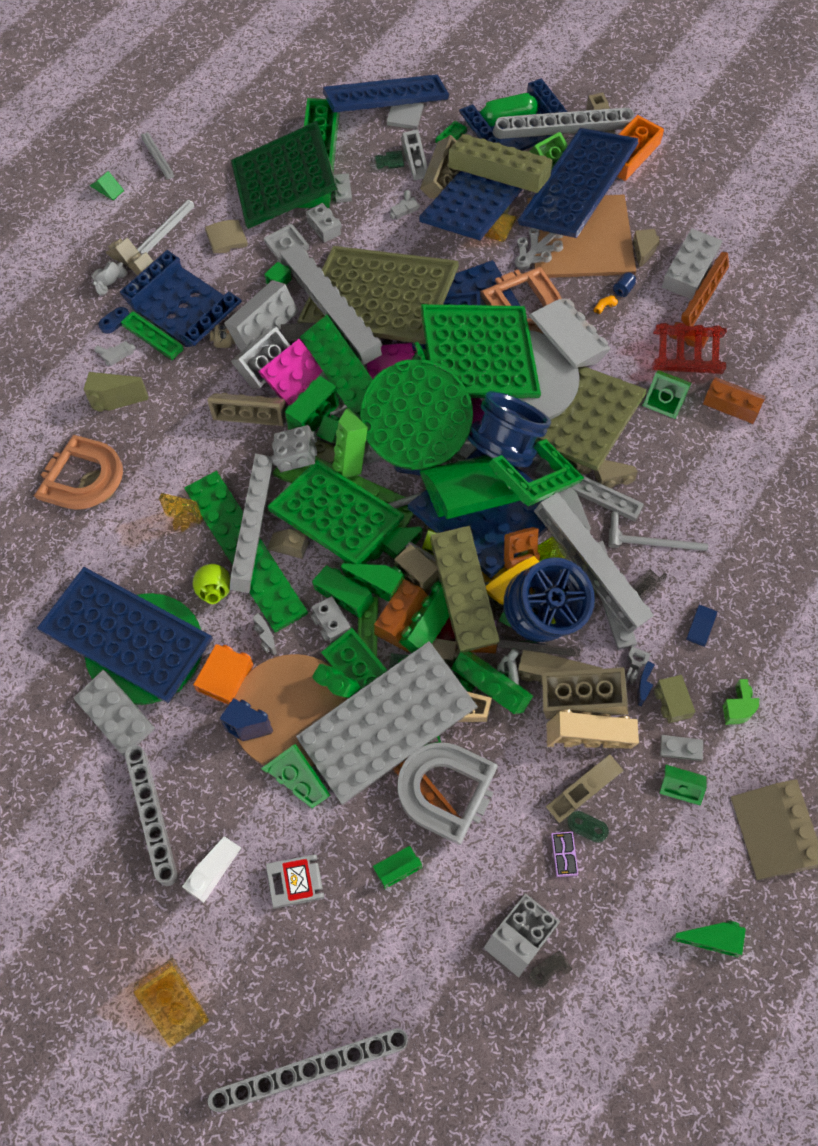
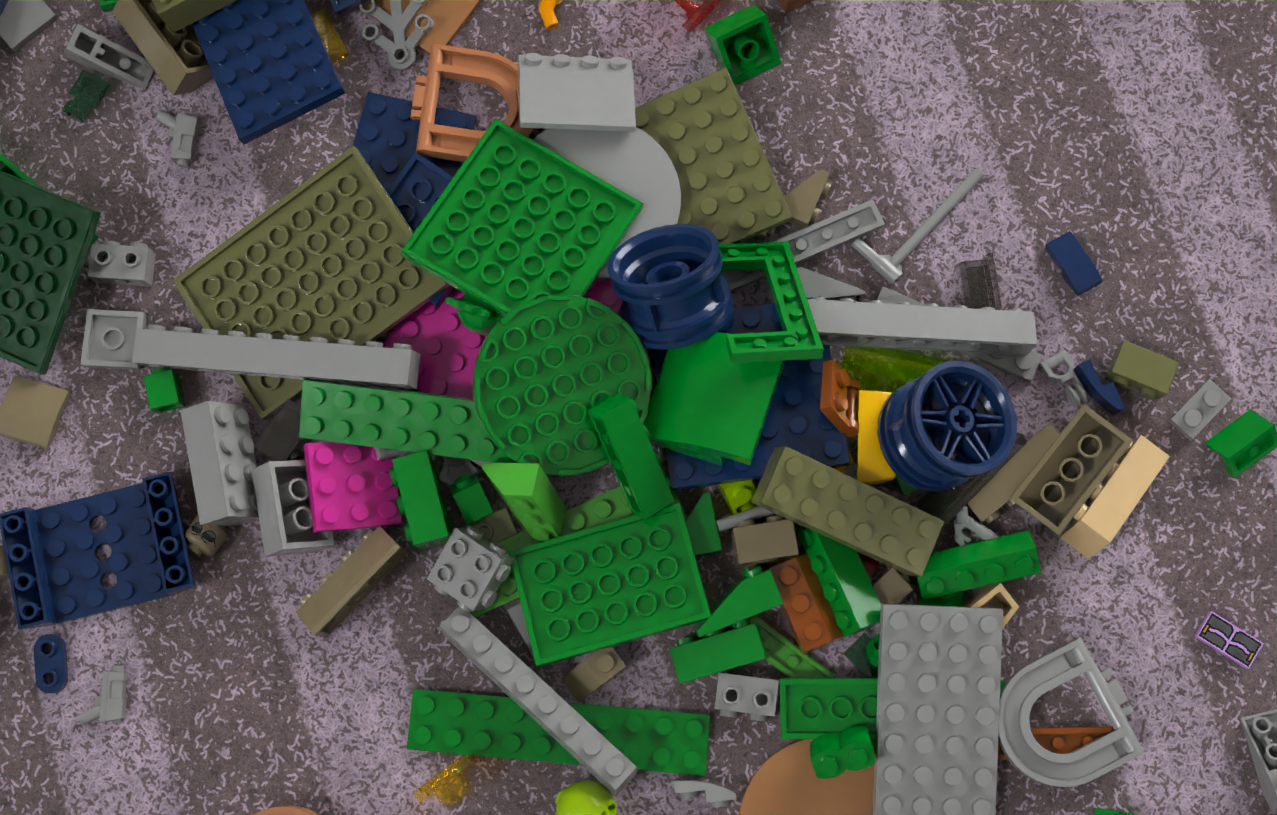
camera: 50 degrees left, 15 degrees up
(113, 391) = (181, 752): olive slope -> none
(152, 335) = (122, 629): green plate -> none
(343, 193) = (77, 190): light grey plate -> none
(407, 469) = (632, 455): none -> green brick
(584, 788) = (1178, 558): dark tan slope -> none
(587, 827) = (1216, 587): clear green plate -> none
(743, 708) = (1208, 302): bright green brick -> none

